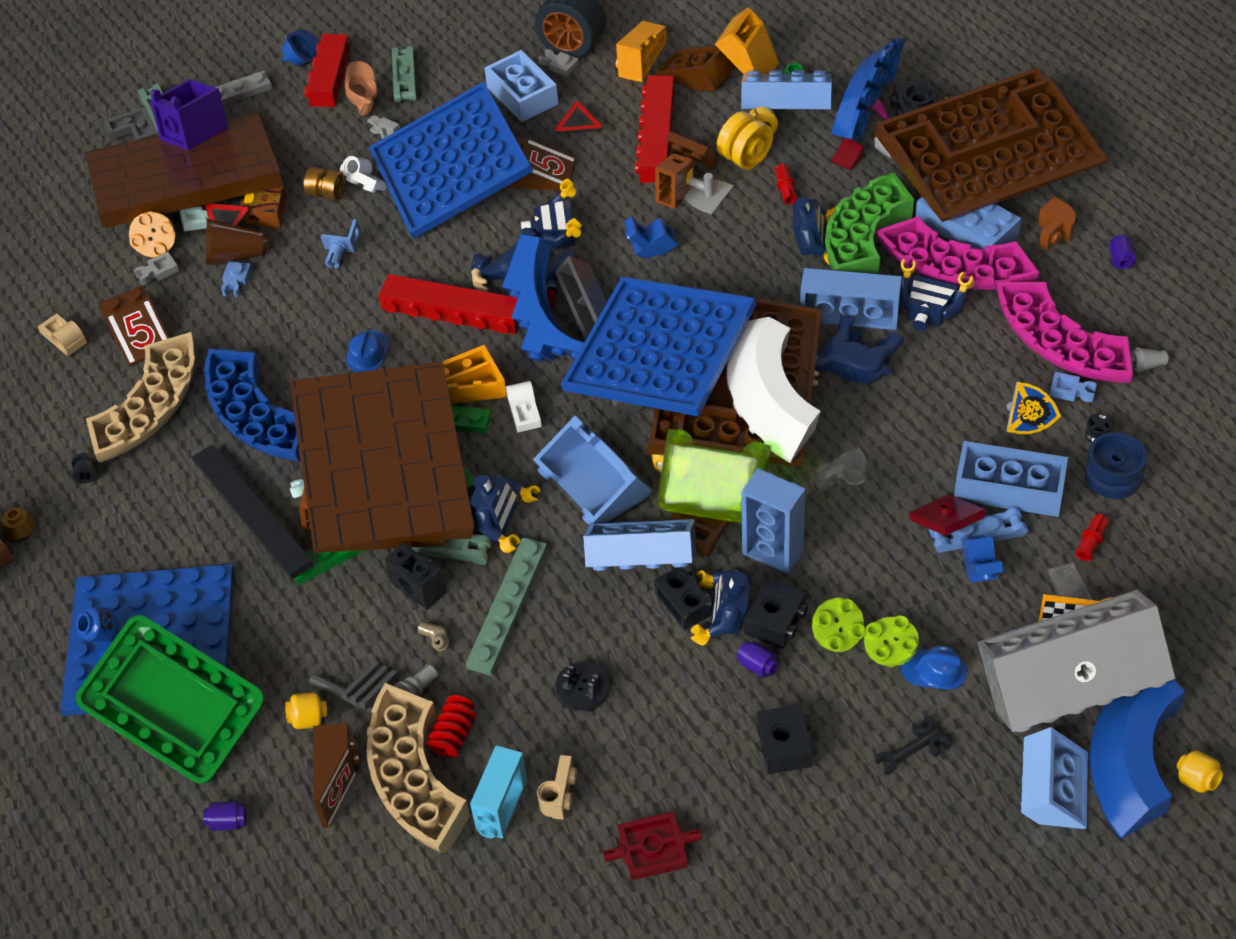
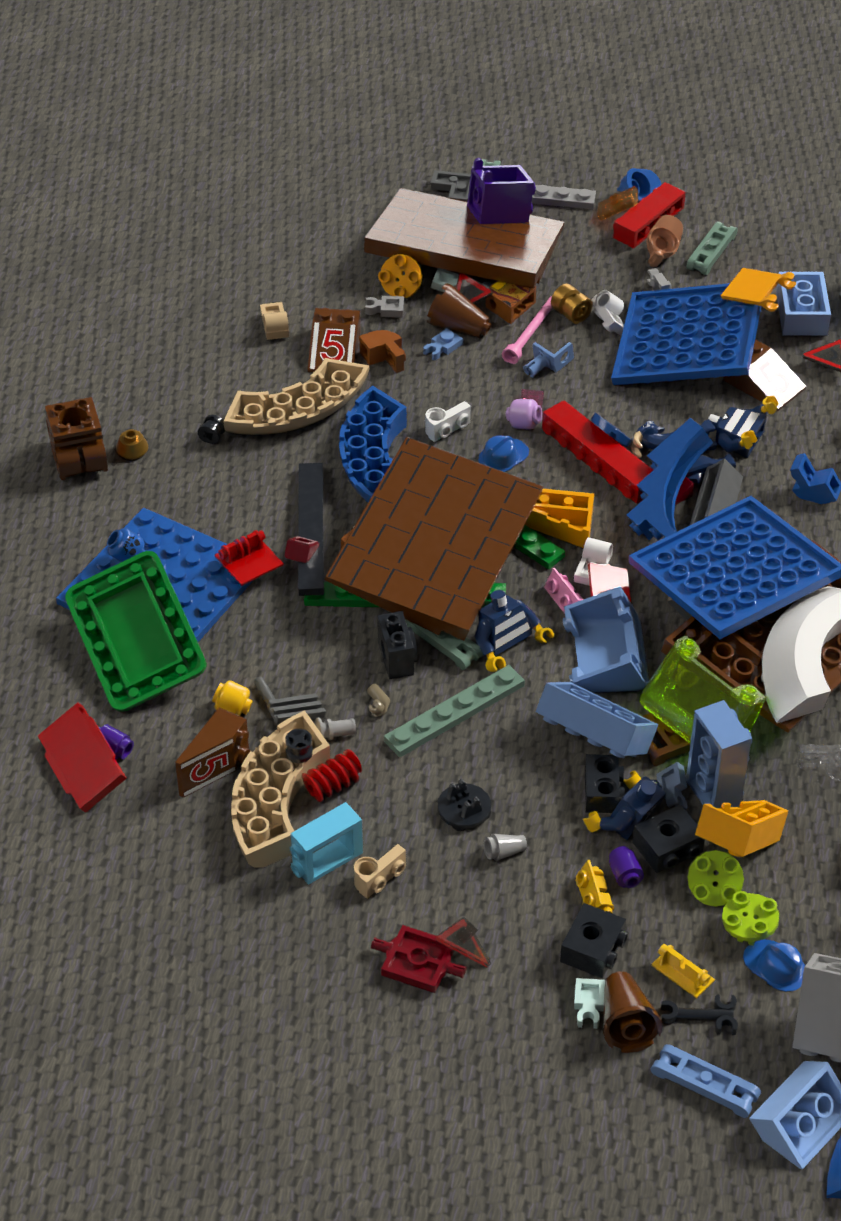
camera: 30 degrees right, 5 degrees down
(184, 307) = (382, 346): none -> dark orange brick
(209, 848) = (81, 757): none -> red piece
(220, 571) = (248, 557): none -> red hinge
(262, 535) = (300, 549): none -> dark red slope
(293, 351) = (442, 423): none -> white plate
(294, 72) = (617, 203): none -> clear orange plate
(305, 253) = (513, 352): none -> bright pink piece
(355, 286) = (536, 395): none -> clear pink tile
(360, 304) = (524, 414): none -> lavender head
(403, 716) = (299, 745): none -> black wheel
(449, 279) = (611, 430): none -> blue tile
(483, 90) = (755, 287): none -> light orange flag
(517, 447) = (561, 590): none -> bright pink hinge
(548, 416) = (606, 578): none -> piece
(643, 702) = (502, 846): none -> light grey cone
(676, 806) = (463, 939): none -> clear smoke piece
(739, 559) = (673, 782): none -> sand blue plate
(743, 694) = (592, 885): none -> yellow hinge
(818, 790) = (589, 1000): none -> light aqua plate
(830, 568) = (742, 827): none -> light orange wedge
(860, 783) = (628, 1015): none -> reddish brown cone
(870, 721) = (682, 971): none -> yellow hinge
(959, 801) = (706, 1080): none -> medium blue plate

